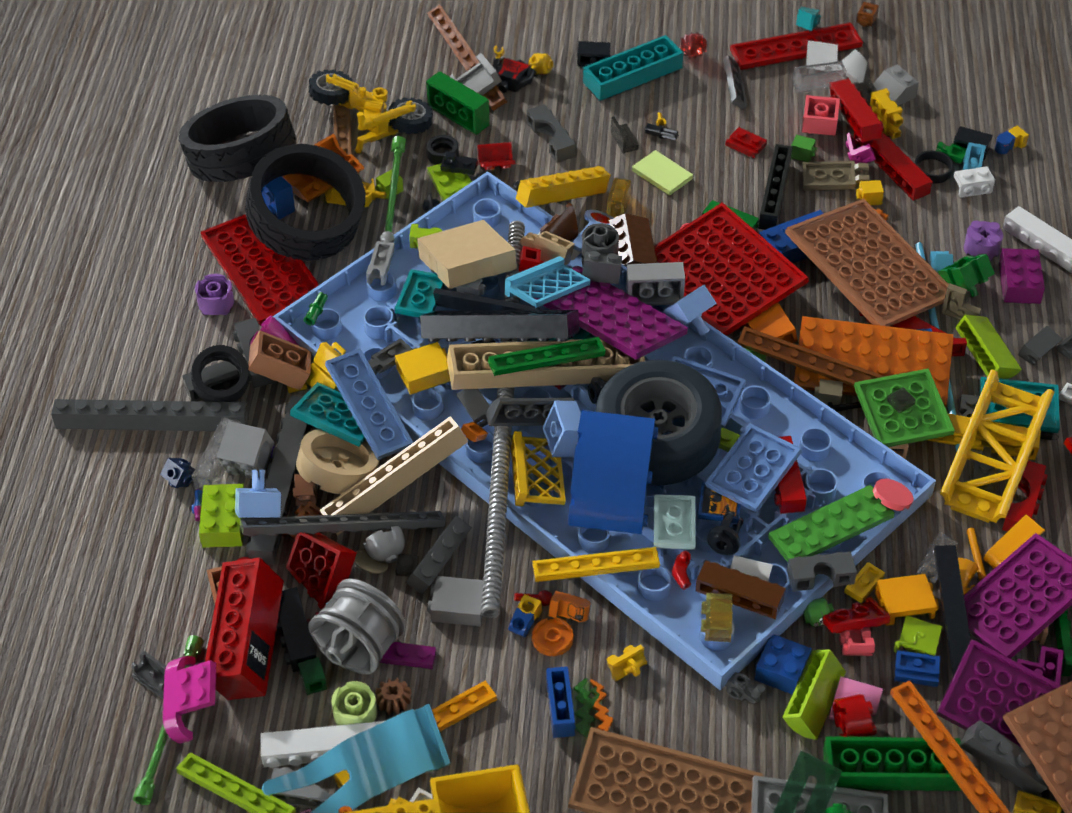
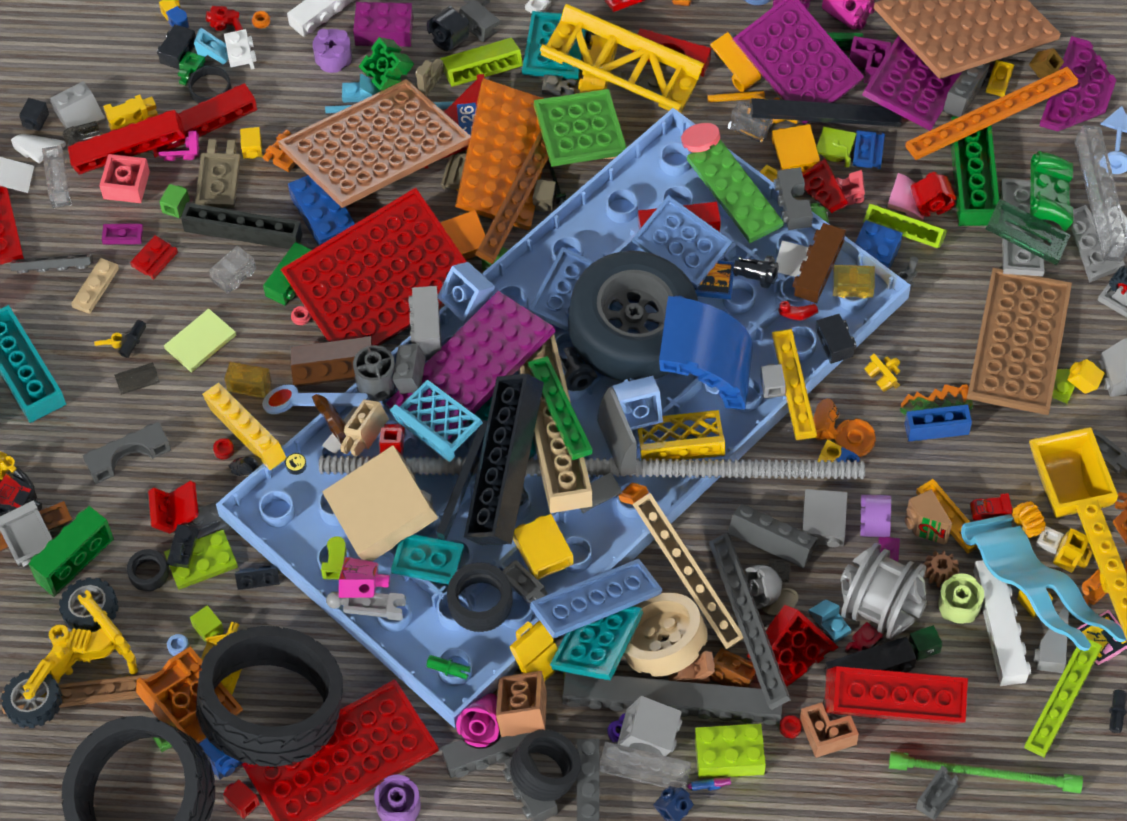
camera: 90 degrees left, 10 degrees up
(185, 692) = (973, 742): dark pink piece -> none
(234, 207) = (240, 798): none -> red brick
(258, 501) = (740, 694): light blue brick -> none
(375, 171) = (177, 644): none -> light blue tile
(376, 307) = (474, 574): none -> black tyre
(398, 148) = (162, 606): bright green hose -> none
(399, 246) = (360, 579): none -> dark pink torso
(438, 768) = (1029, 518): none -> light orange gear
(445, 680) = (928, 518): none -> medium nougat slope
(452, 638) = (875, 515): none -> medium lavender brick
(459, 748) = (991, 507): none -> red leg
(521, 213) = (295, 463): none -> tile
(544, 596) = (809, 447): red bar -> none
(596, 540) = (772, 380): none -> light grey brick
(646, 597) = (835, 338): none -> black brick
(674, 522) = (751, 312): light aqua plate -> none
(715, 110) = (95, 285): none -> tan plate
(732, 186) = (232, 269): none -> clear brick
(766, 121) = (122, 234): none -> magenta plate
(884, 61) = (34, 114): none -> black brick
(901, 400) = (576, 125): clear smoke plate -> none
(1010, 168) = (221, 16): none -> red piece
(1014, 196) = (261, 19): none -> orange plate
(1020, 318) = (448, 28): none -> black brick

